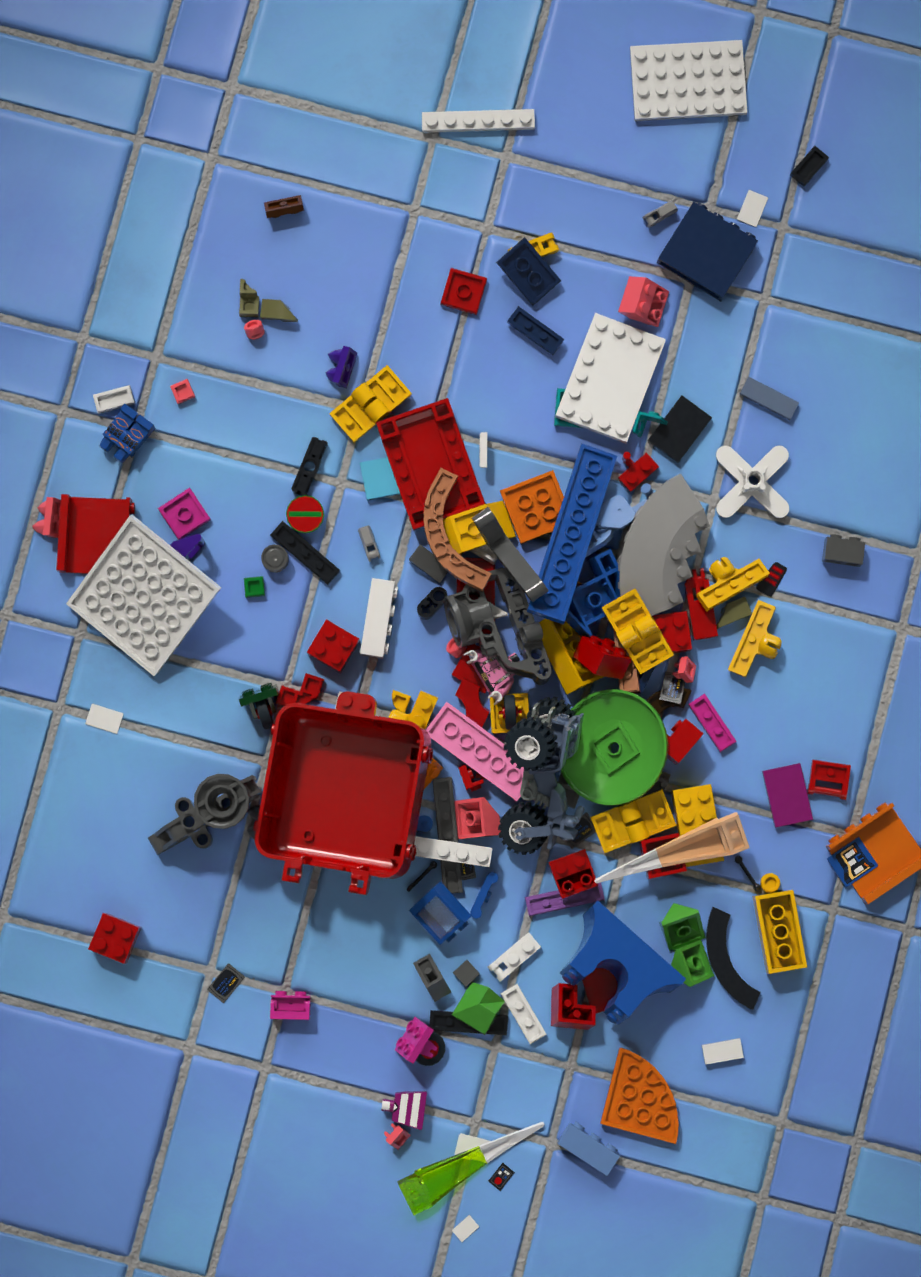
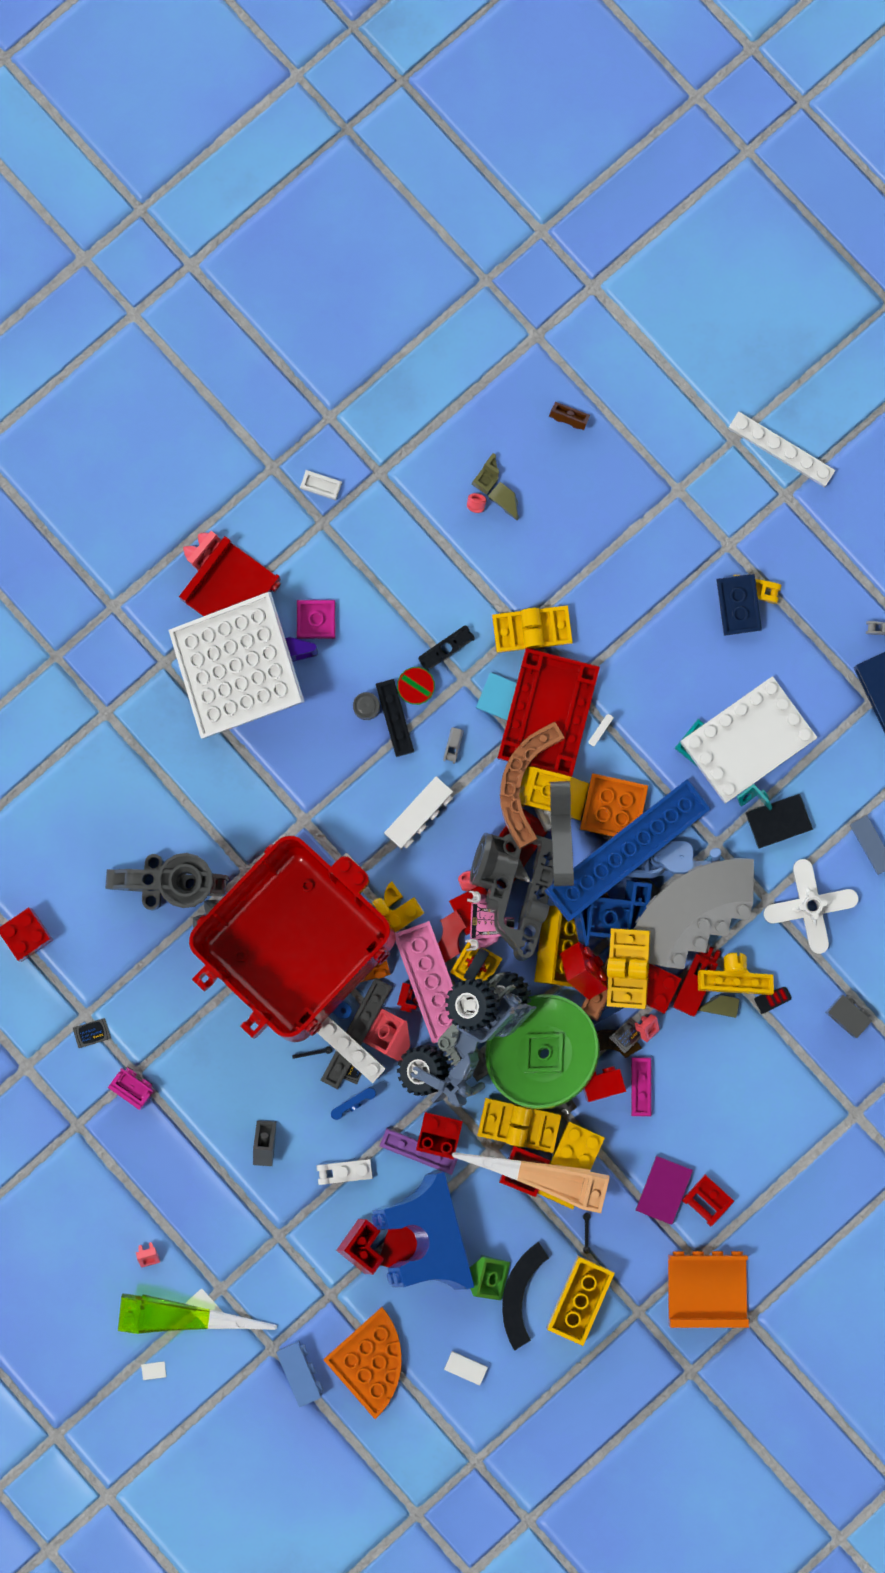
camera: 35 degrees right, 0 degrees up
(104, 718) = (137, 746): white sticker -> none
(127, 433) = (313, 520): blue hips -> none
(182, 391) = (382, 515): coral tile -> none
(254, 587) = (333, 718): green tile -> none
(263, 710) = (272, 827): dark green plate -> none
(309, 691) = (320, 836): red tile -> none
(333, 646) = (366, 812): red brick -> none
(345, 361) = (535, 579): dark purple tile -> none
(407, 1108) = (171, 1238): torso -> none
(420, 1044) = (218, 1192): dark pink plate -> none
(425, 603) = (466, 826): black beam -> none
(428, 563) = (490, 792): dark grey slope -> none
(442, 914) = (308, 1096): window -> none
(446, 1022) = (269, 1201): black tile -> none
(463, 291) = (673, 585): red tile -> none
(466, 973) = (295, 1158): dark grey tile -> none
(478, 1007) = (286, 1194): bright green slope -> none
(501, 1176) = (212, 1347): black sticker -> none
(523, 1014) = (320, 1224): white tile -> none
(535, 330) = (711, 658): dark blue plate -> none
(585, 829) = (474, 1104): sticker -> none
(637, 471) = (719, 833): red plate -> none
(643, 301) = (820, 693): coral slope -> none
(681, 926) = (501, 1240): bright green slope -> none
(755, 640) = (724, 1041): yellow plate -> none
(770, 882) = (600, 1254): yellow tile -> none
(852, 862) = (681, 1282): sticker -> none

